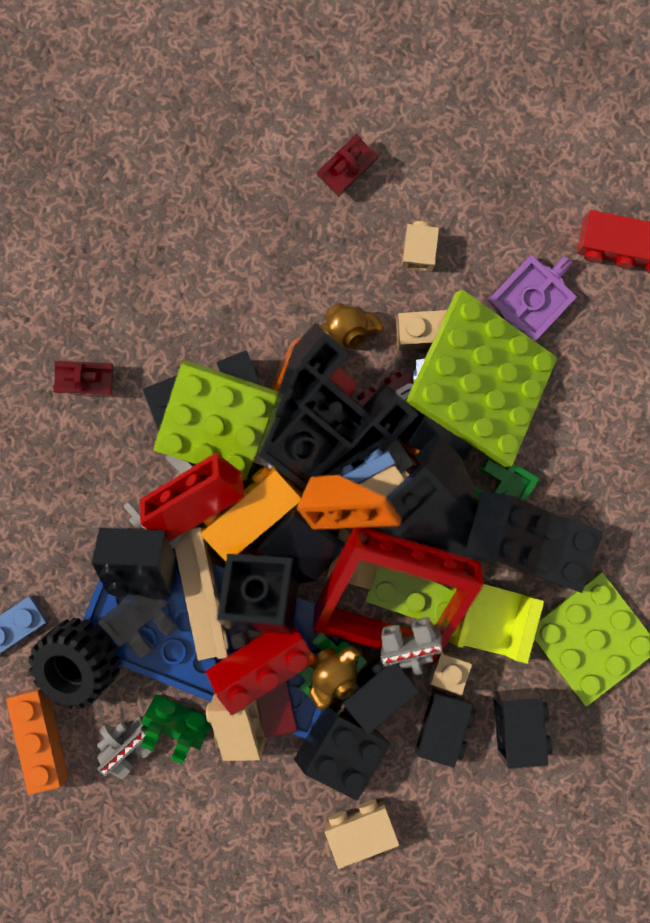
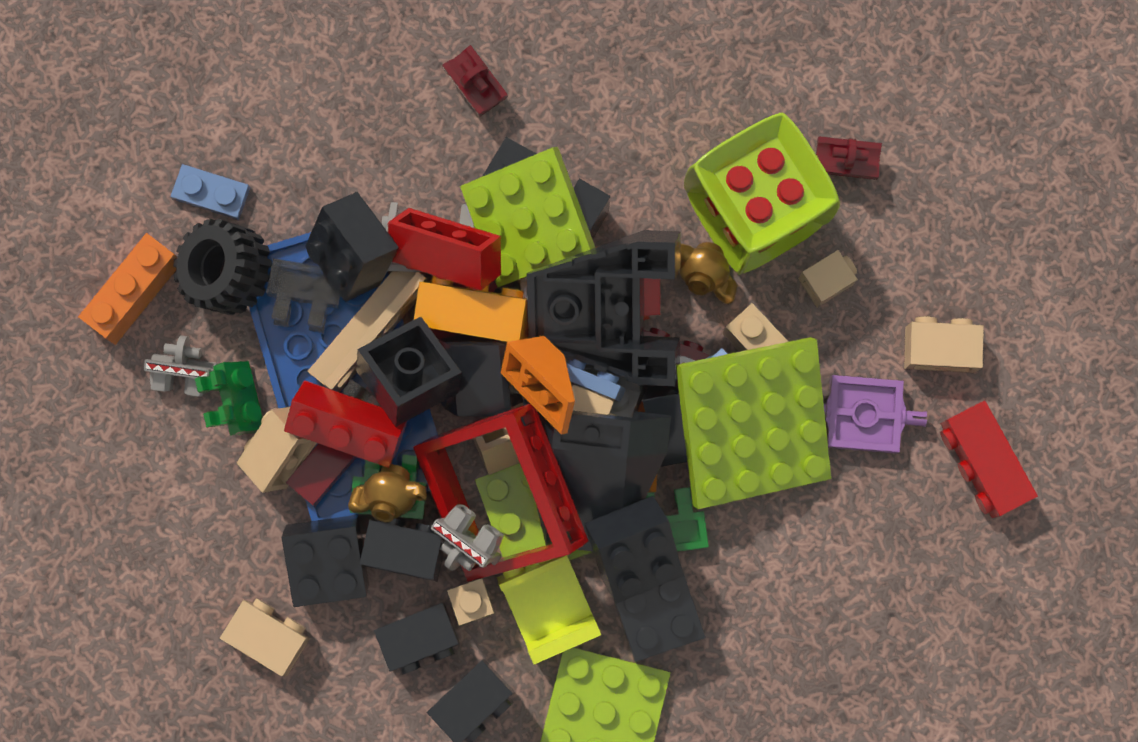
camera: 50 degrees right, 5 degrees down
(327, 242) = (761, 192): none -> lime piece
(529, 207) = (943, 345): none -> tan brick

